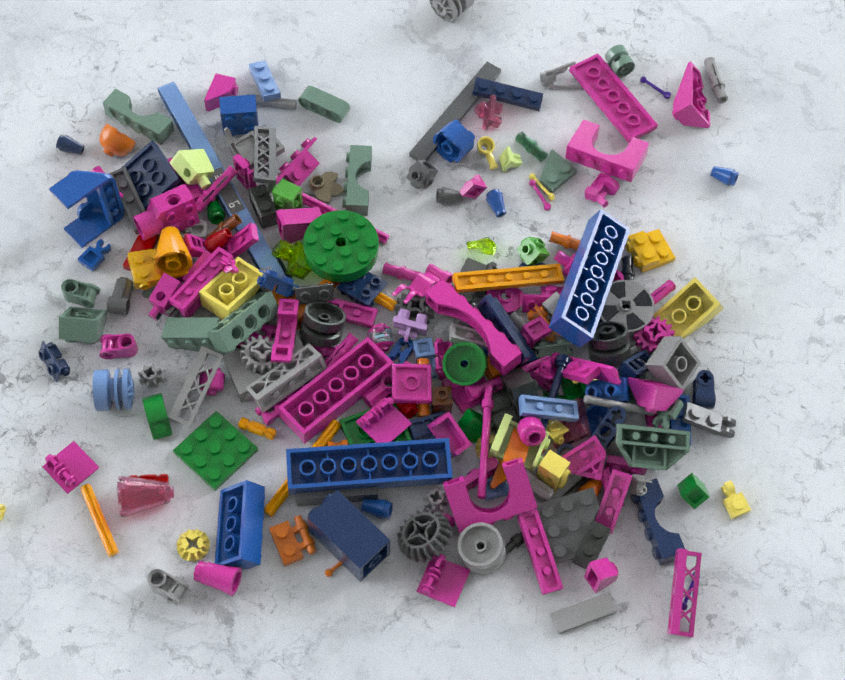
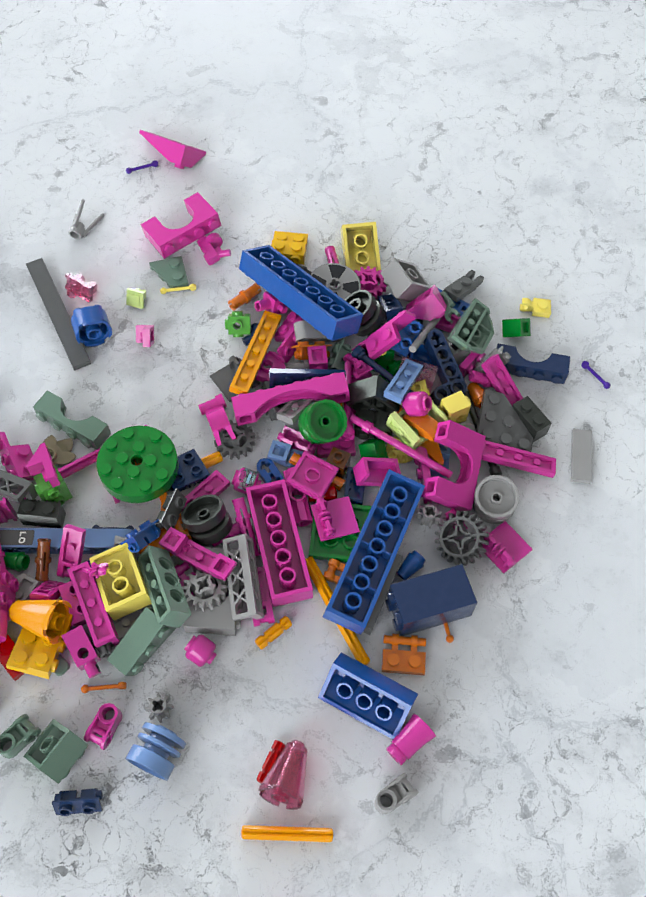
camera: 60 degrees left, 0 degrees up
(70, 467) = (211, 838): dark pink hinge -> none
(120, 300) = (52, 700): dark grey piece -> none
(140, 318) = (121, 685): none -> orange hinge
(157, 416) = (208, 719): green brick -> none
(189, 383) = (195, 672): light grey fence -> none
(192, 553) = (357, 759): light yellow gear -> none
(215, 450) = (274, 683): green plate -> none
(217, 240) = (53, 571): red cone -> none
(294, 178) = (43, 463): none -> dark pink slope
(294, 222) = (84, 491): dark pink slope -> none
(295, 256) = (119, 511): clear neon green brick -> none
(400, 272) = (191, 433): dark pink pin -> none
(410, 328) = (244, 453): lavender hips -> none
(421, 174) = (105, 360): dark grey brick -> none
(447, 196) = (138, 360): dark grey cone -> none
(484, 245) = (206, 357): clear neon green animal -> none
(489, 144) = (113, 306): light yellow bar -> none
(496, 202) = (171, 327): blue cone -> none
(508, 94) = (73, 263): dark blue plate -> none
(531, 146) = (134, 276): clear green pin -> none
(547, 206) = (199, 295): dark pink hinge -> none
(587, 459) = (458, 378): dark pink slope -> none
(601, 574) = (561, 425): dark pink slope -> none
(613, 98) = (131, 197): dark pink plate -> none
(620, 61) = (101, 173): sand green wheel -> none
(677, 592) = (601, 377): dark pink fence -> none
(704, 390) = (437, 275): dark blue piece -> none
(718, 85) = (172, 127): light grey pin -> none
(725, 175) = (256, 165): blue cone -> none

